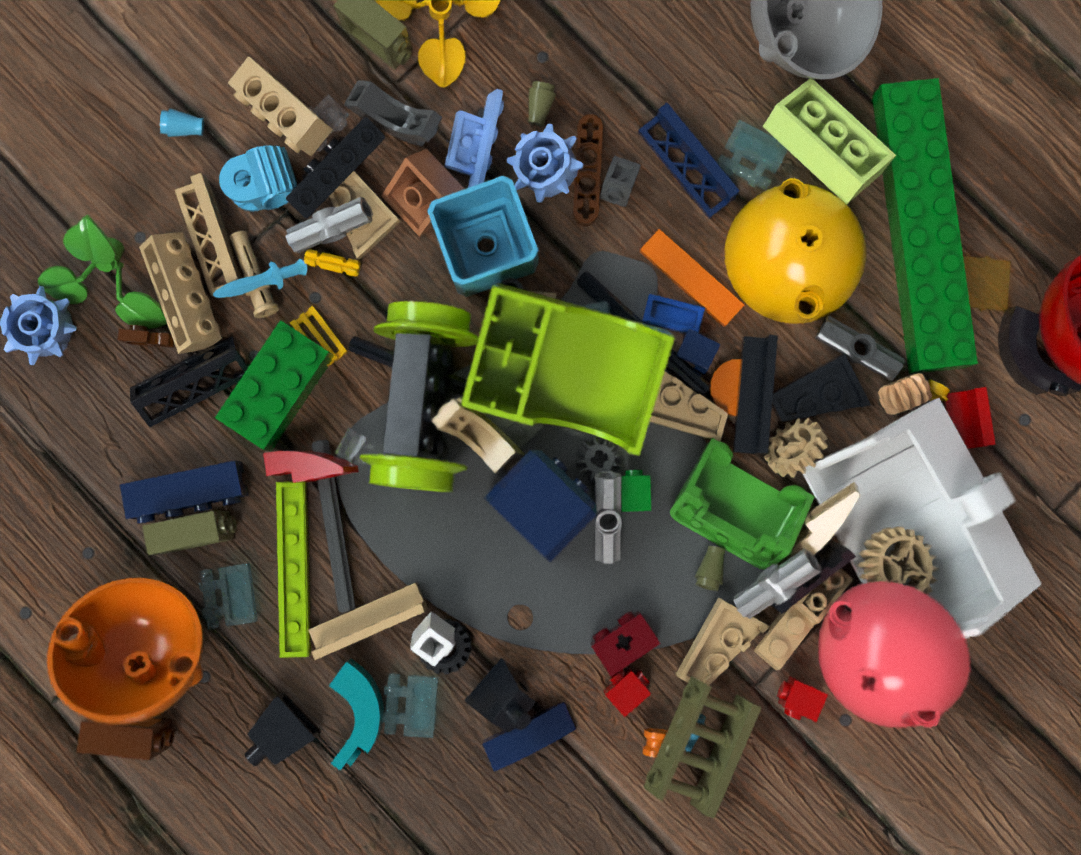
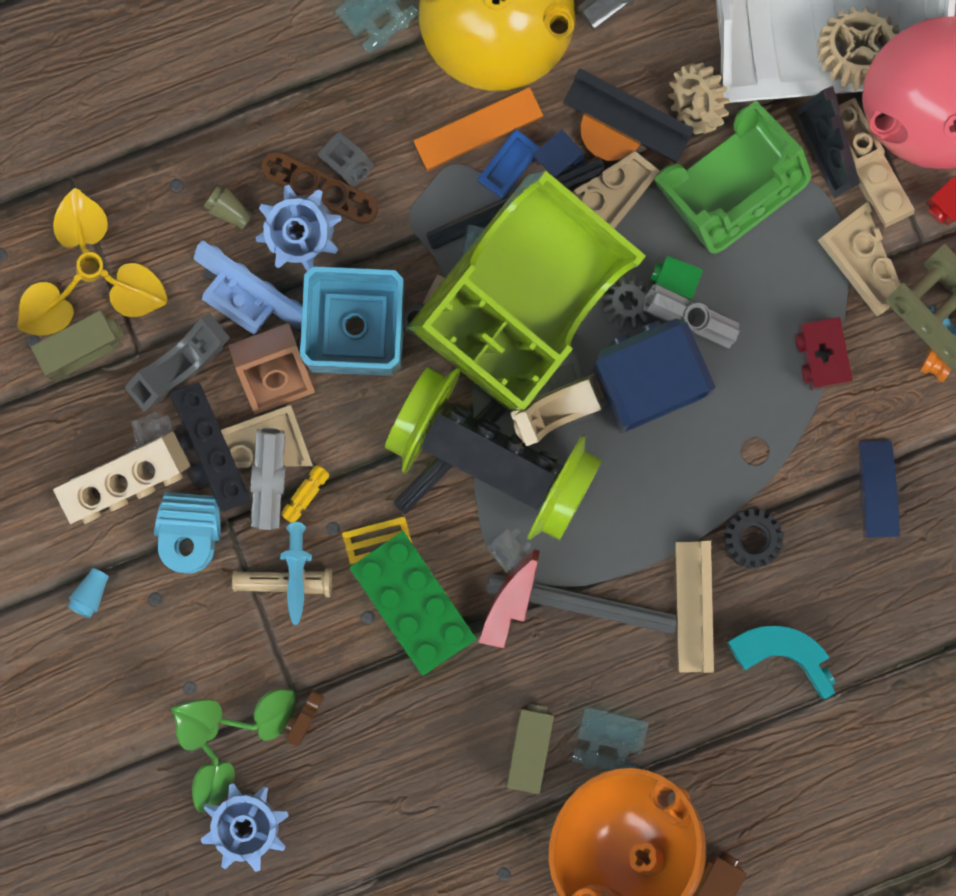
camera: 70 degrees left, 0 degrees up
(180, 292) = (272, 663): tan brick -> none
(182, 375) = (362, 692): black fence -> none
(184, 490) = (482, 743): dark blue brick -> none
(216, 231) = (222, 600): tan fence -> none
(279, 732) = (772, 742): black torso -> none
(293, 569) = (609, 664): lime tile -> none
(420, 705) = (803, 588): clear light blue plate -> none
(433, 639) = (741, 541): white brick -> none
(503, 697) = (830, 498): black torso -> none
(627, 690) = (873, 371): red brick -> none
(696, 153) = (352, 69): dark blue fence -> none
(711, 569) = (787, 236): olive cone -> none
(777, 583) = (828, 175): light grey piece -> none
(820, 391) = (650, 48): black wing -> none
(825, 521) = (788, 106): slope -> none

